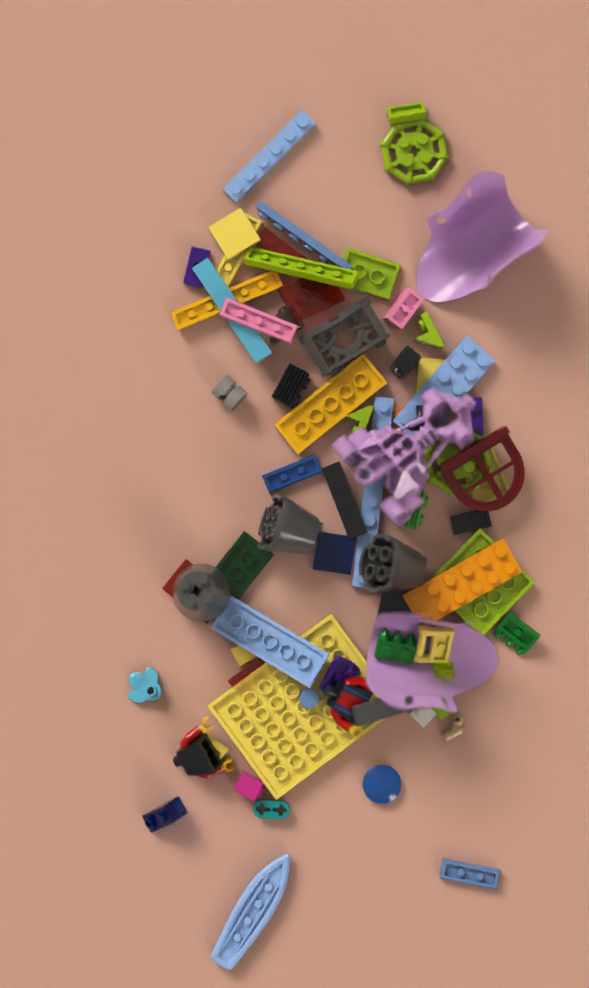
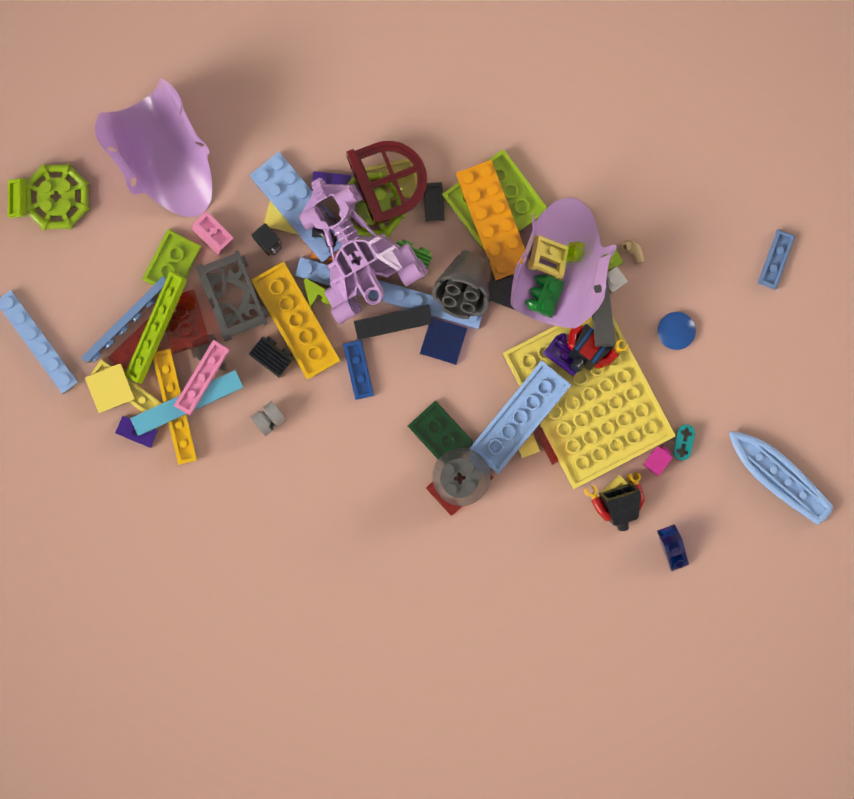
camera: 85 degrees left, 0 degrees up
(142, 683) = (542, 550): medium azure plate -> none
(288, 527) = (411, 381): dark grey cone -> none
(309, 698) = (581, 387): medium blue tile -> none
(431, 337) = (245, 209): lime slope -> none
(516, 632) = (550, 174): green plate -> none

